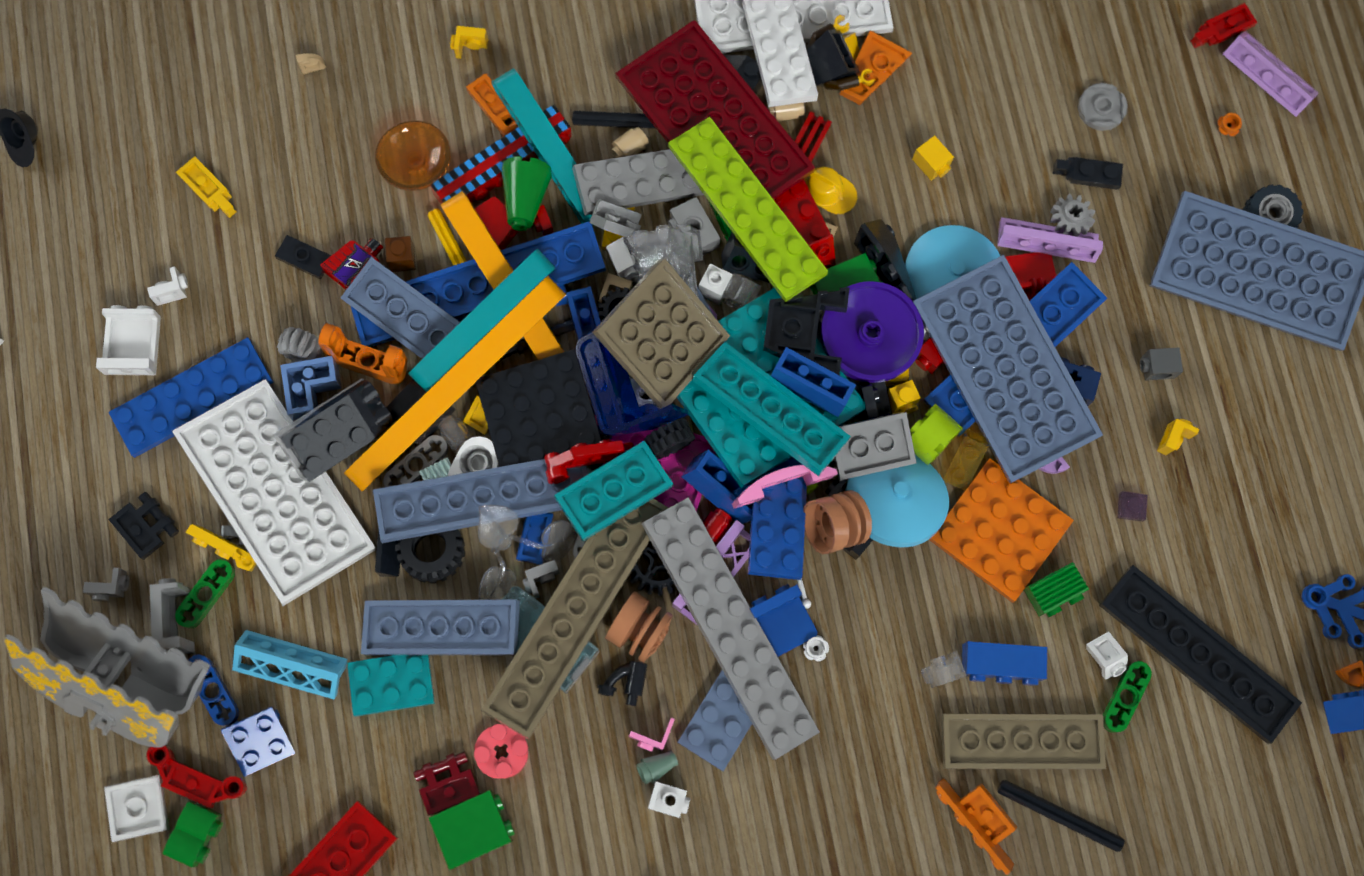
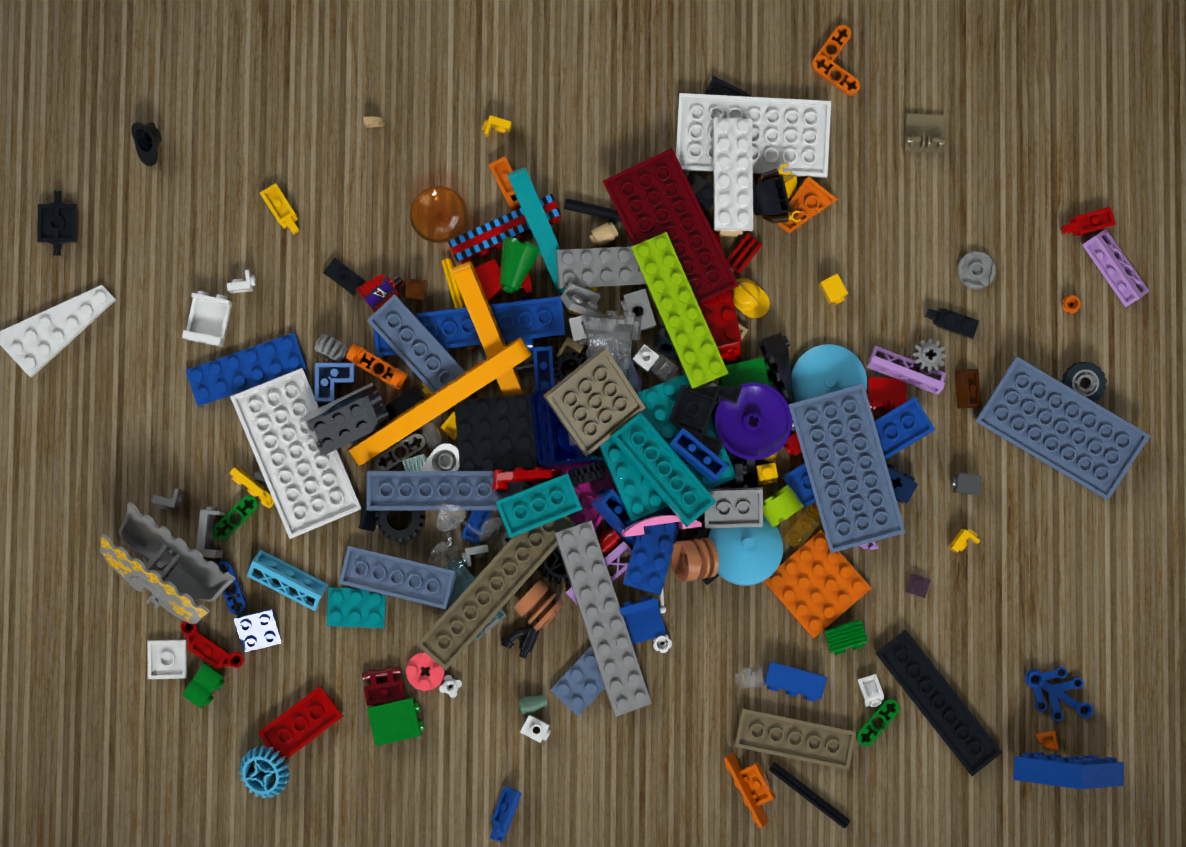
camera: 15 degrees right, 10 degrees up
(137, 531) = (195, 464): black plate -> none
(481, 320) = (467, 360): teal beam -> none
(544, 771) = (450, 681): none -> white plate
(649, 744) = (530, 687): bright pink bracket -> none
(1129, 249) = (967, 388): none -> reddish brown slope

